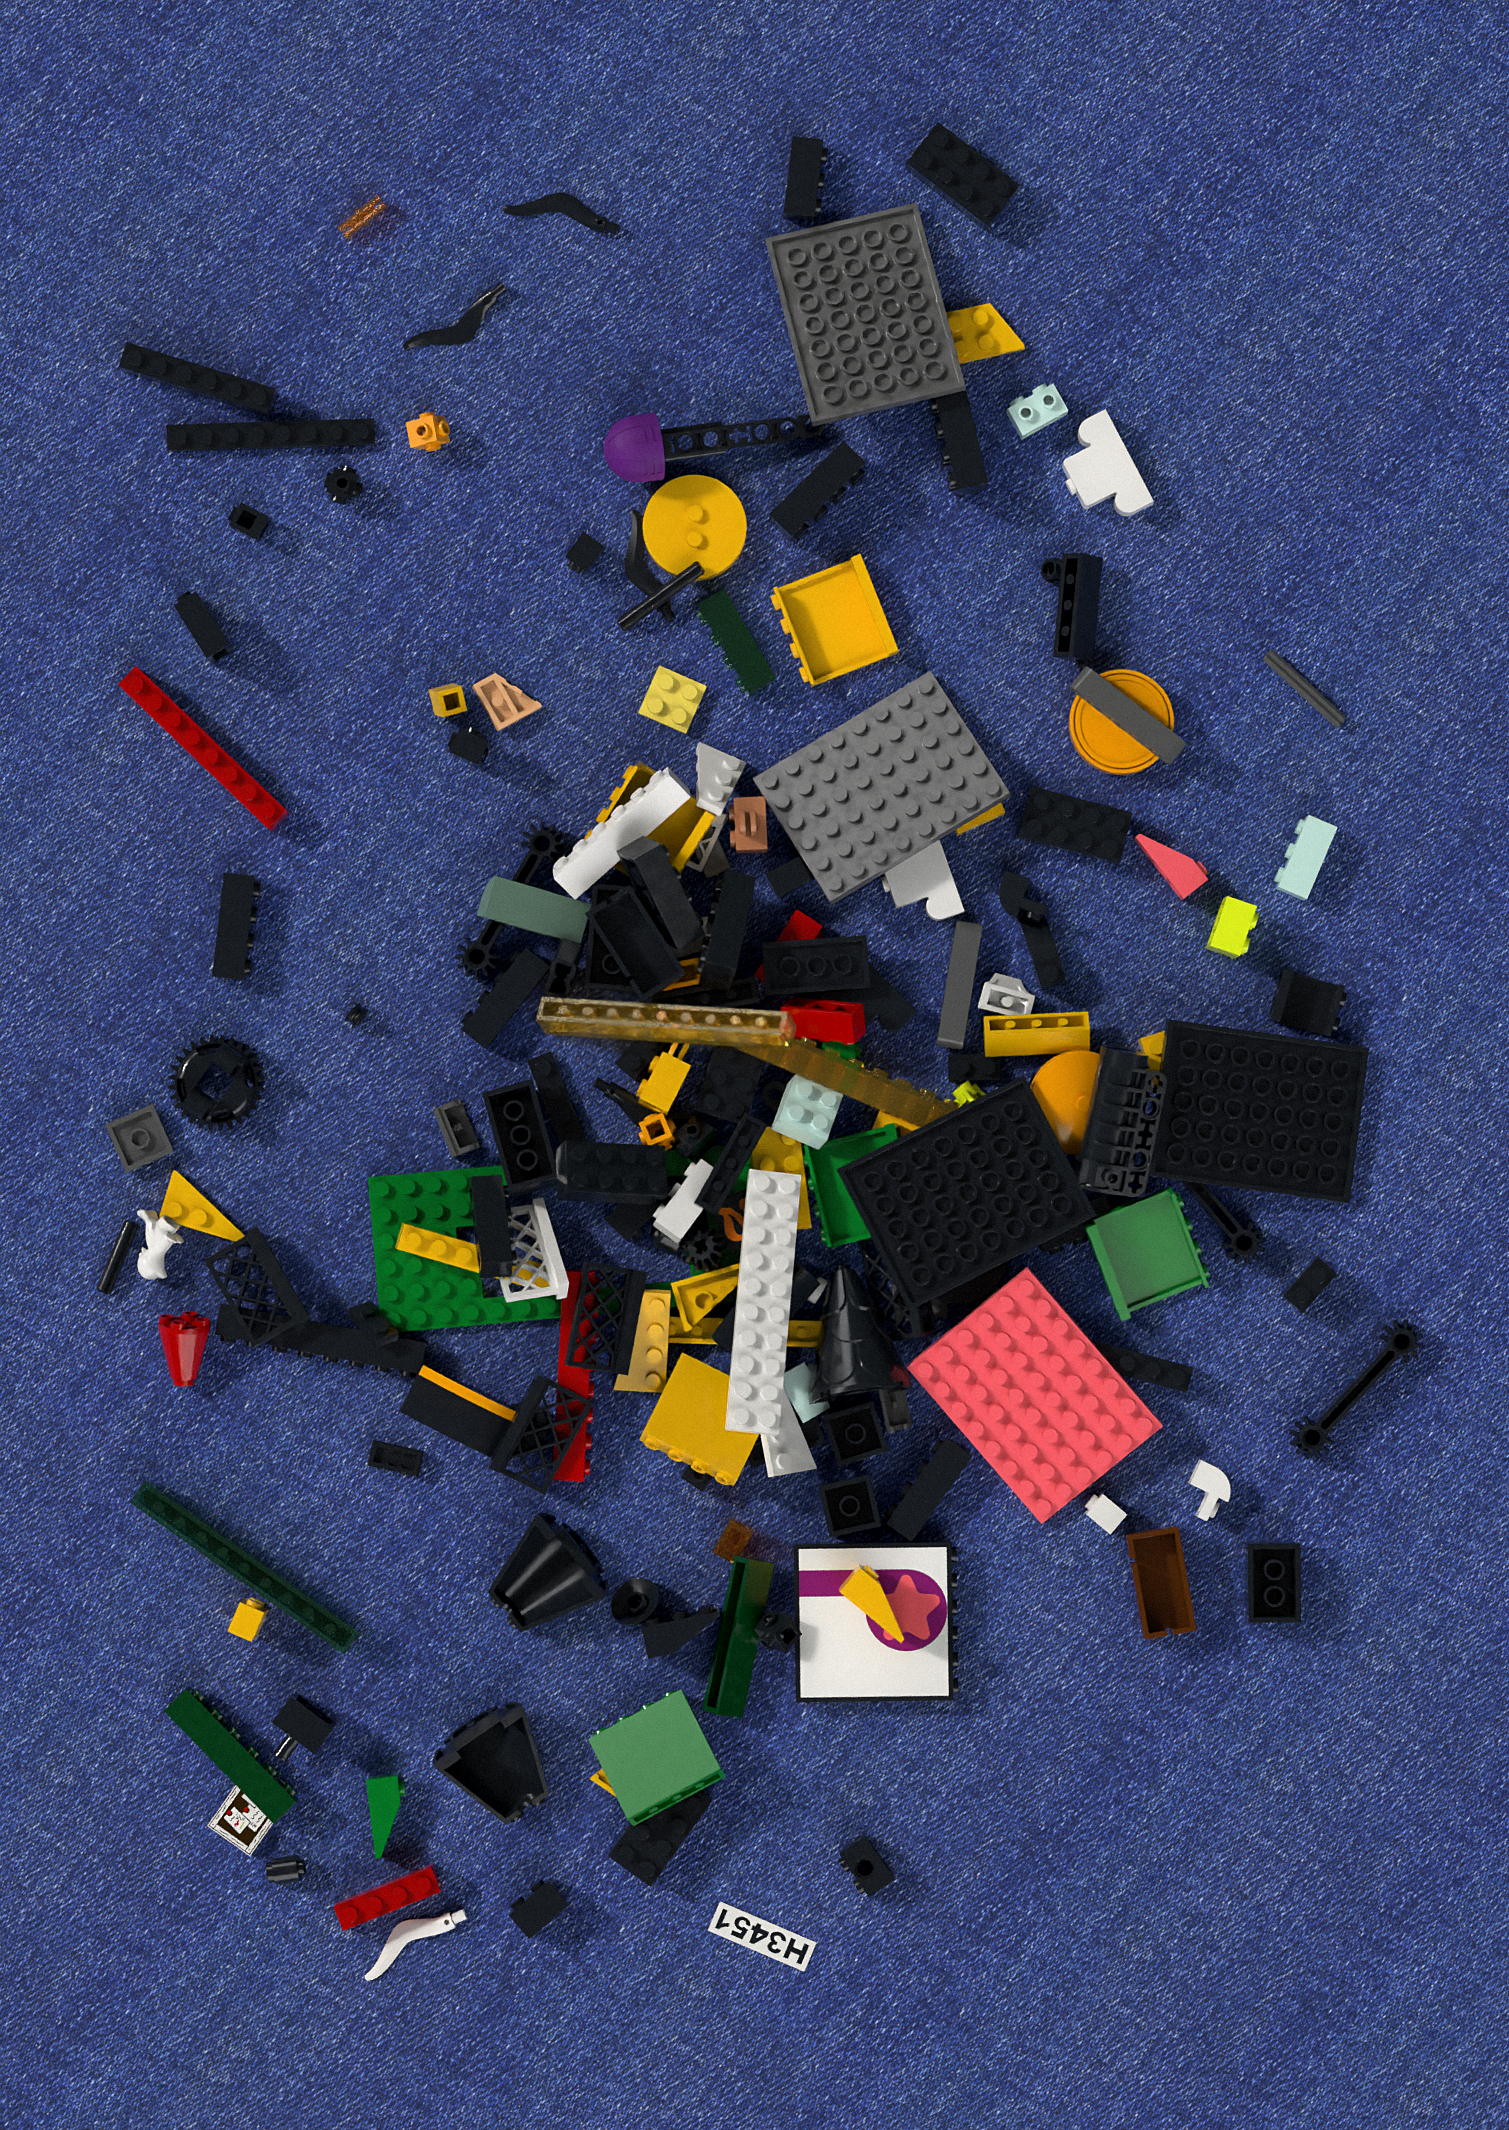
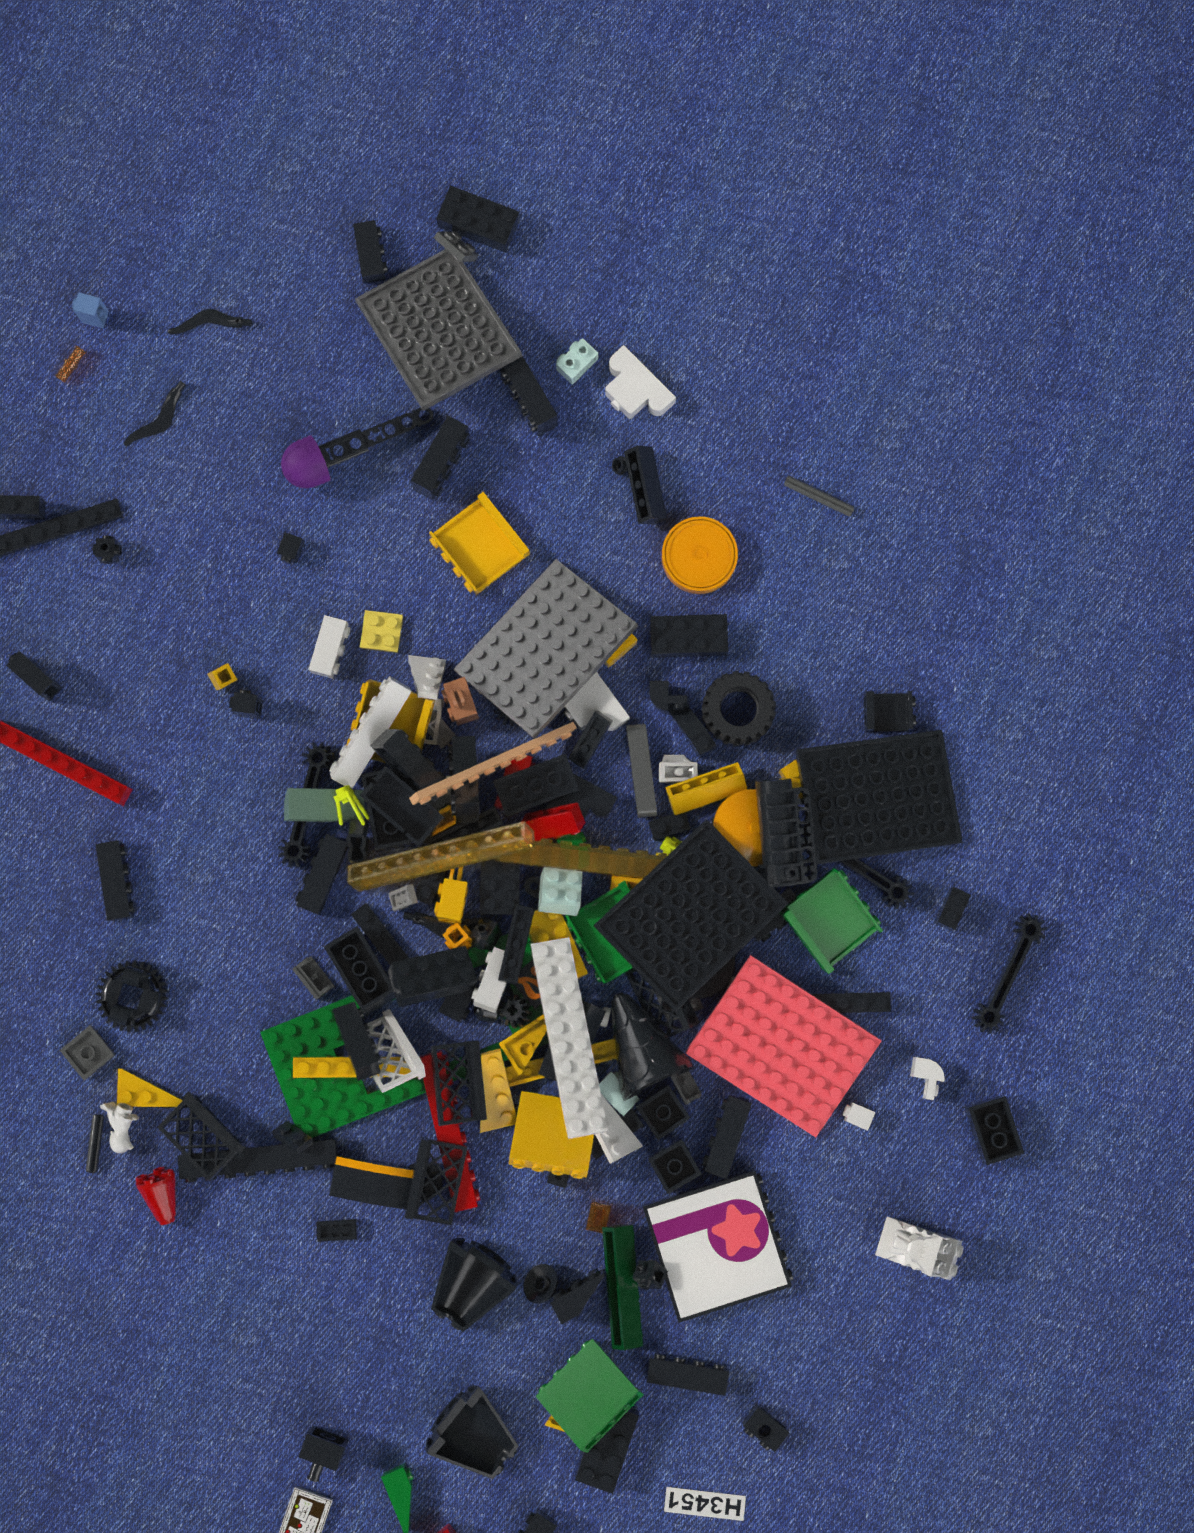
camera: 20 degrees left, 5 degrees down
(232, 1755) = (277, 1487): dark green brick -> none
(244, 512) = (40, 591): black brick -> none
(245, 1566) = (248, 1343): clear green brick -> none
(248, 1618) = (261, 1382): yellow brick -> none
(356, 1015) = (219, 918): black bush -> none
(409, 153) = (90, 310): none -> medium blue brick
(428, 432) = (156, 496): light orange brick -> none
(503, 701) = (263, 667): light nougat wing -> none
(567, 905) = (347, 795): none -> neon yellow plant
(598, 701) = (329, 647): none -> white brick
(601, 1059) = (403, 897): none -> light grey plate
(636, 569) = (334, 553): black piece -> none
(660, 596) = (351, 562): black axle -> none
(694, 522) = (362, 508): yellow brick -> none
(736, 643) = (413, 577): clear green brick -> none
(761, 925) = (488, 766): none -> light nougat plate
(787, 1770) = (687, 1375): none -> black brick
(789, 877) = (498, 729): black slope -> none
(867, 1594) = (706, 1228): yellow slope -> none
(904, 925) = (590, 739): none -> black plate
(922, 208) = (452, 242): none -> dark grey plate
(981, 334) = (524, 320): yellow wing -> none
(1127, 715) = (703, 547): dark grey beam -> none
(1130, 1702) = (919, 1248): none -> white brick
(1135, 916) = (738, 683): none -> black tyre
(1160, 1582) = (914, 1154): reddish brown piece -> none
(1177, 869) = (768, 644): coral slope -> none
(1231, 927) = (821, 673): neon yellow brick -> none
(1305, 857) = (856, 611): light aqua brick -> none

